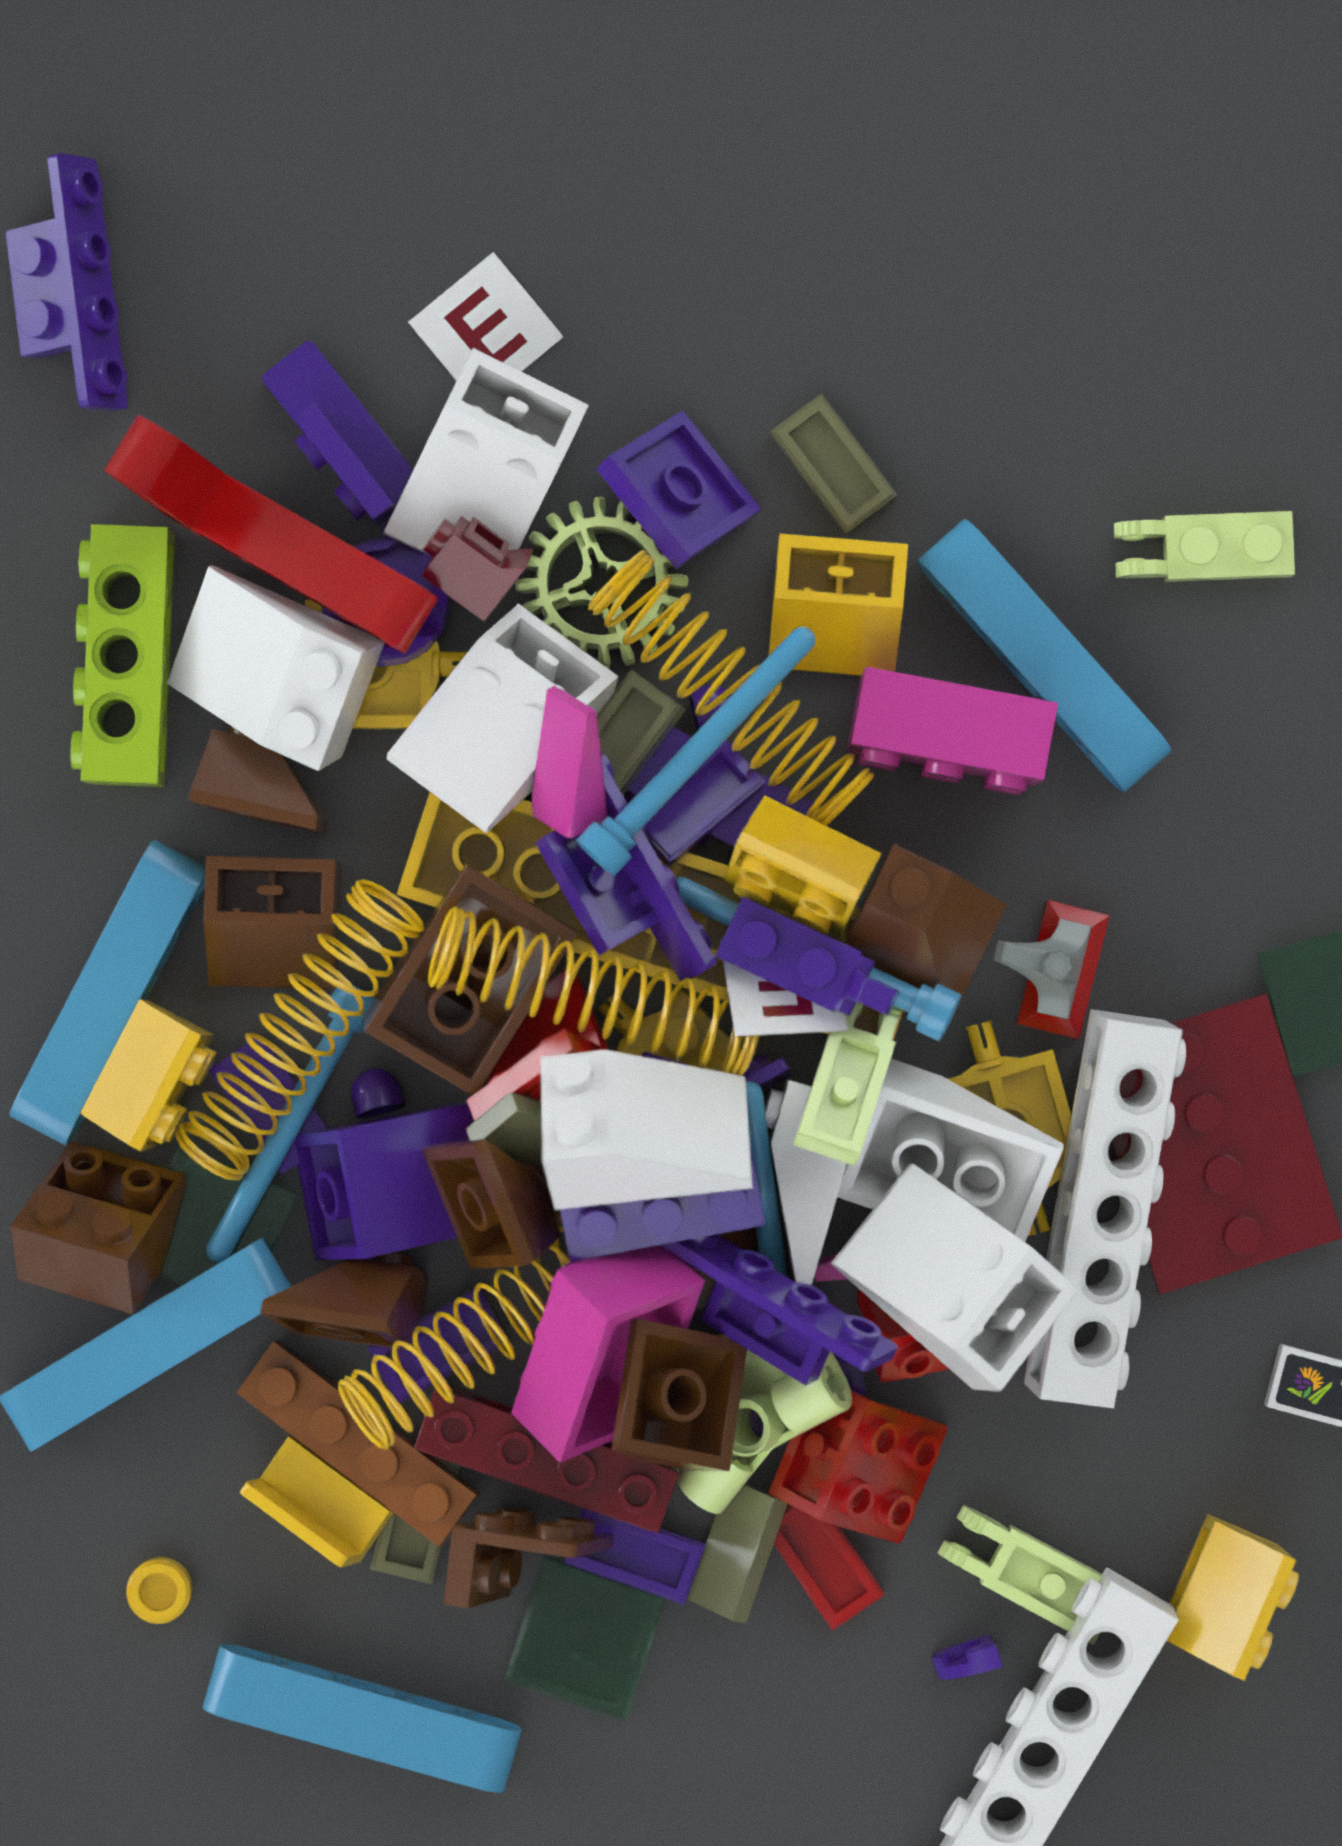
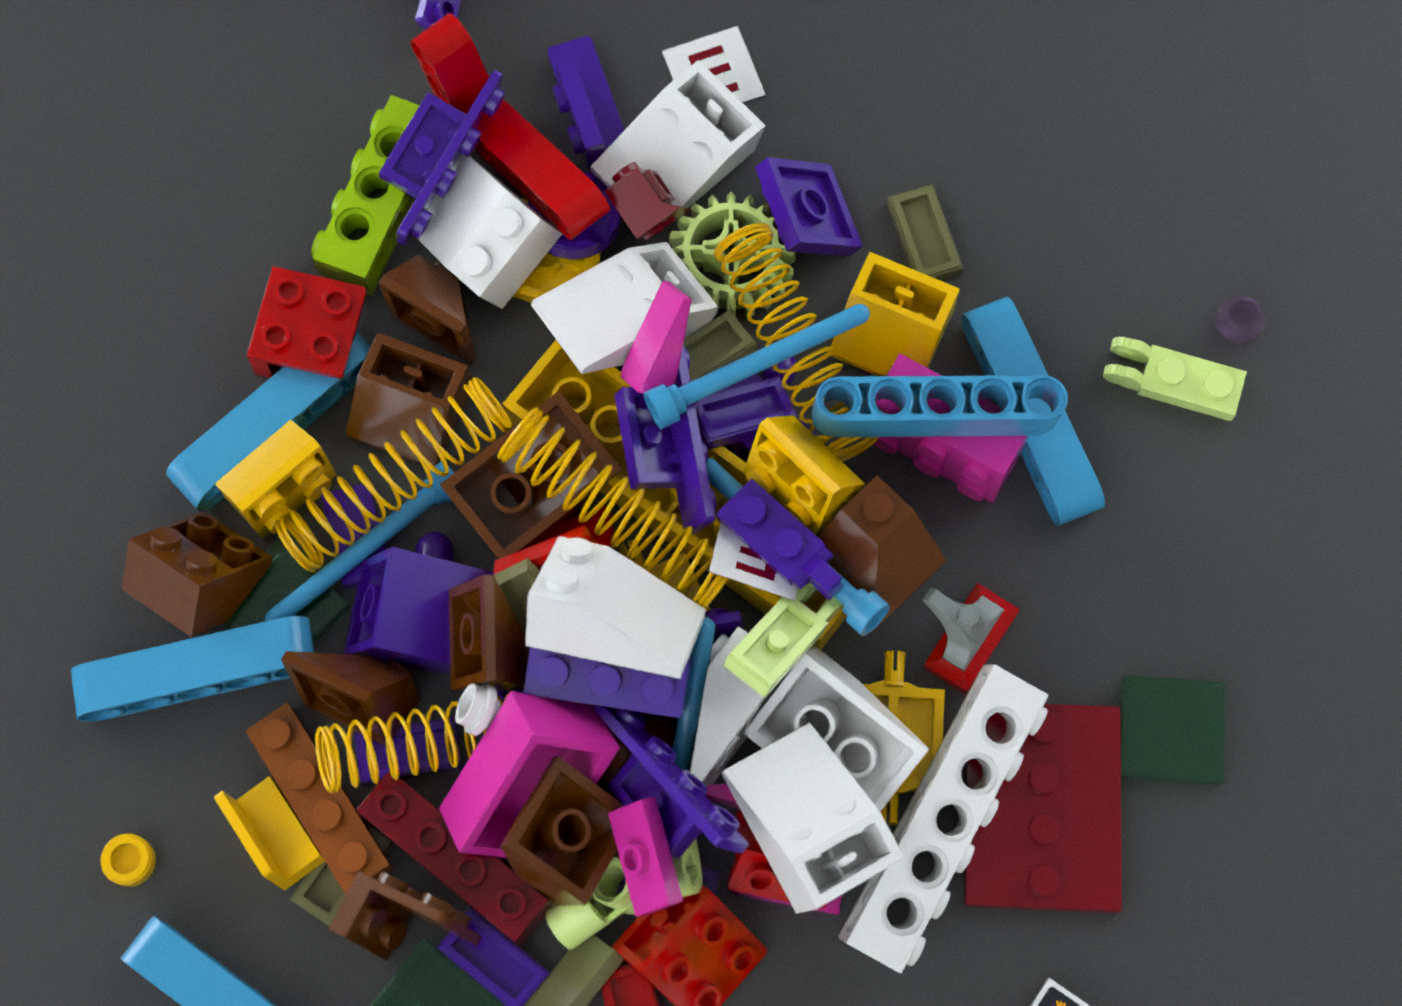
camera: 25 degrees right, 15 degrees down
(109, 868) = (305, 324): none -> red bracket
(179, 593) = (429, 149): none -> dark purple bracket
(521, 1294) = (477, 708): none -> white plate
(780, 1395) = (645, 857): none -> dark pink plate
(965, 710) = (958, 392): none -> dark azure beam
(1263, 441) = (1240, 319): none -> clear purple plate

